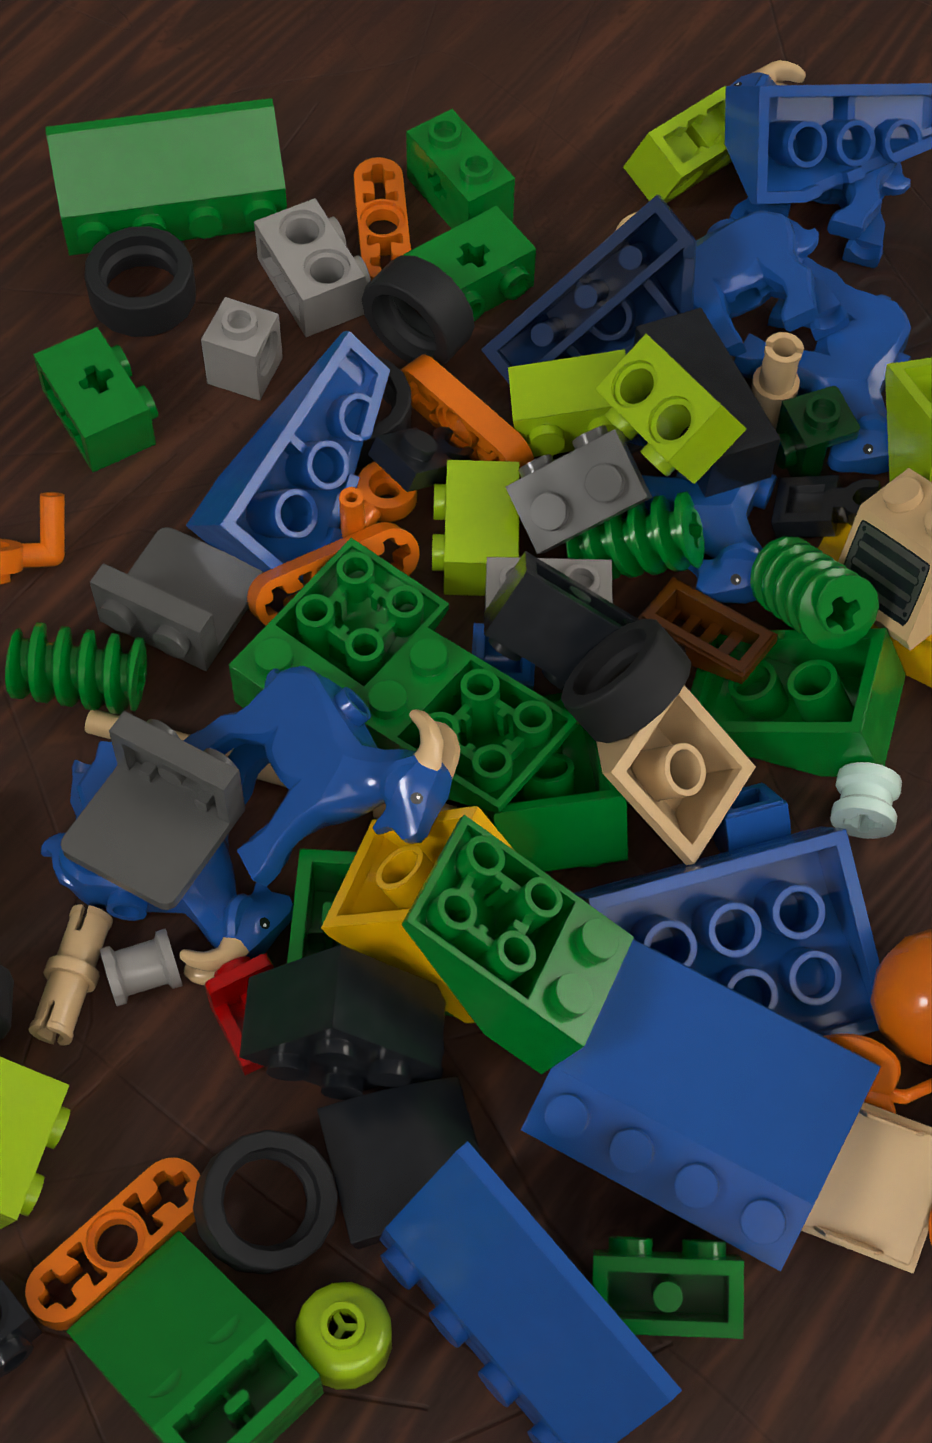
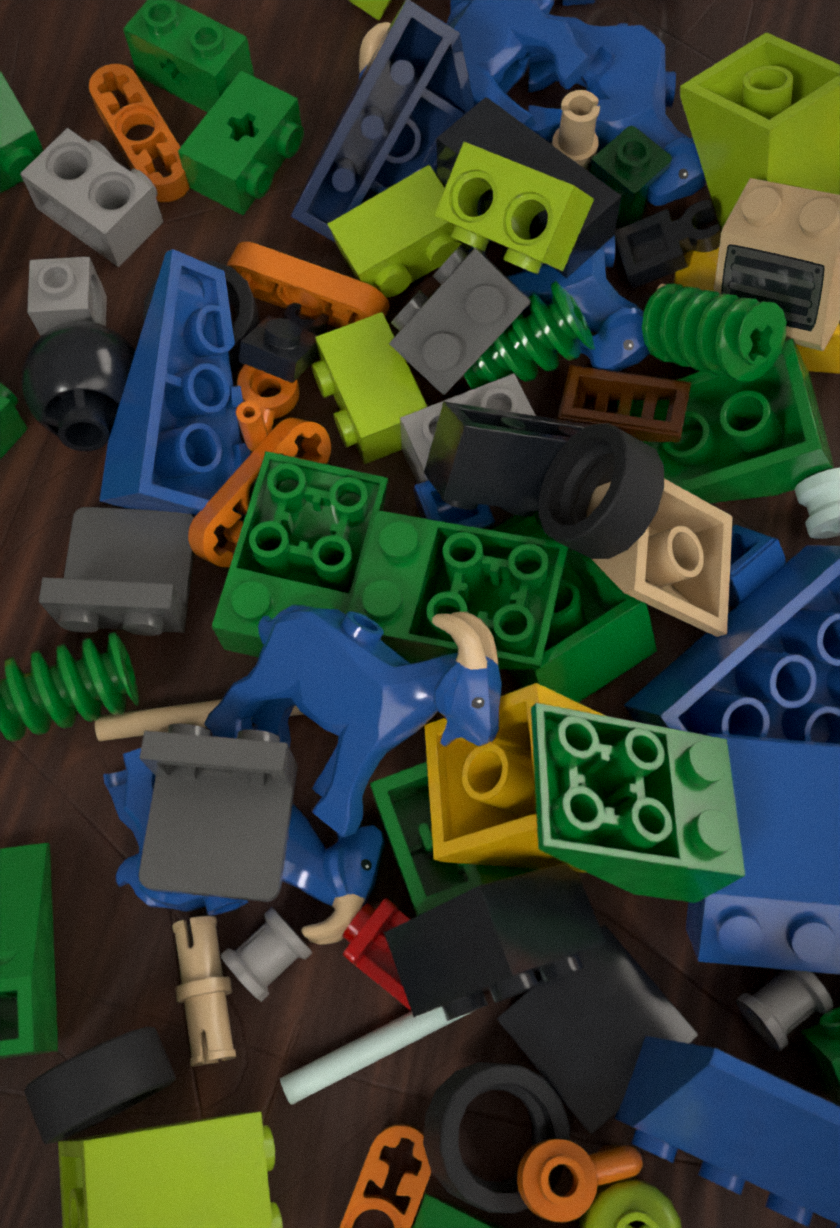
camera: 20 degrees left, 10 degrees up
(200, 1091) = (361, 1053): none -> light aqua bar
(214, 415) = (77, 381): none -> black brick
(326, 1257) = (588, 1172): none -> orange plate
(430, 291) = (222, 179): black tyre -> none
(589, 1215) = (784, 1005): none -> light grey bush

